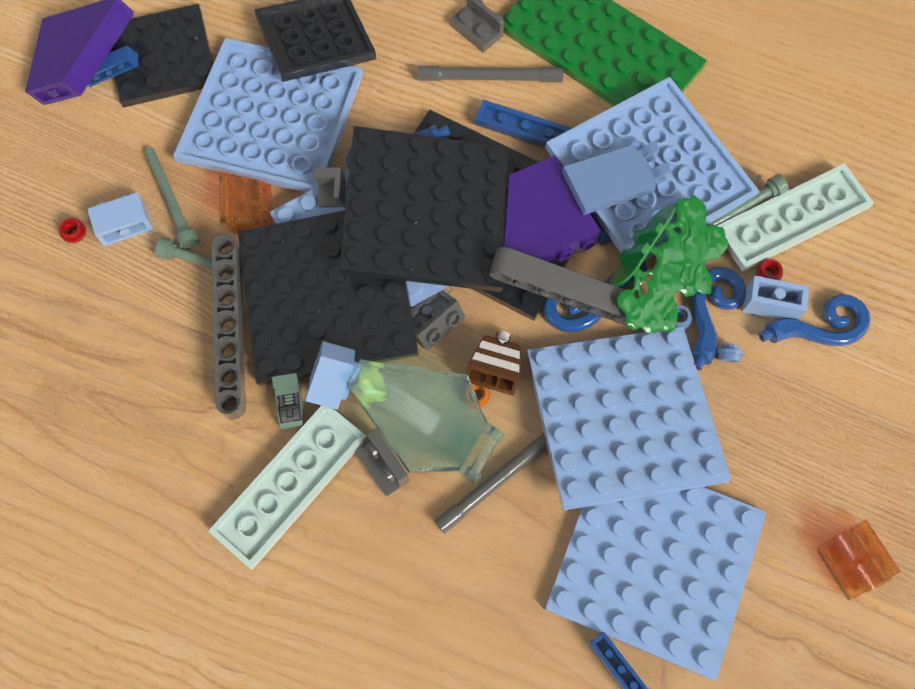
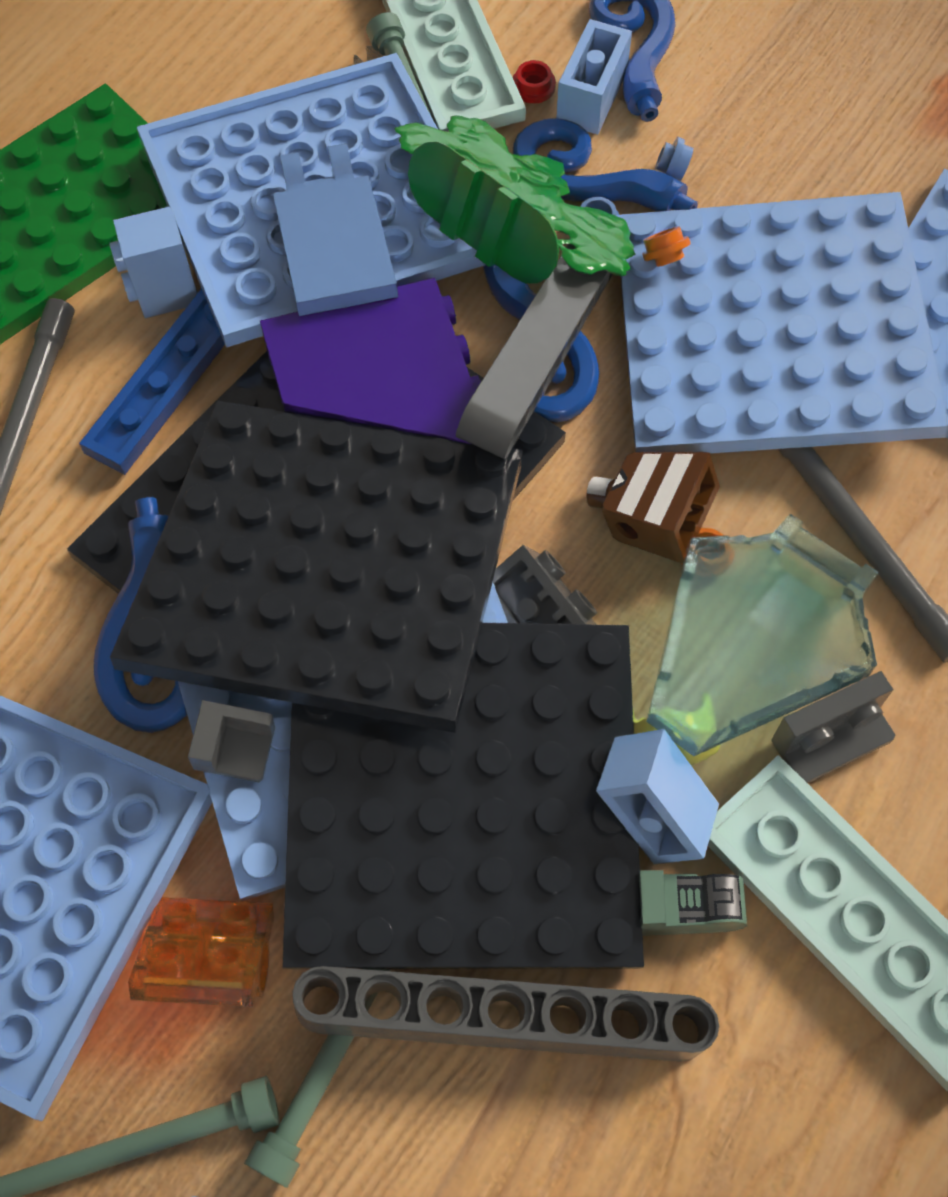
camera: 80 degrees left, 5 degrees down
(587, 100) = (155, 262): none -> light blue brick
(654, 347) = (665, 246): none -> orange plate

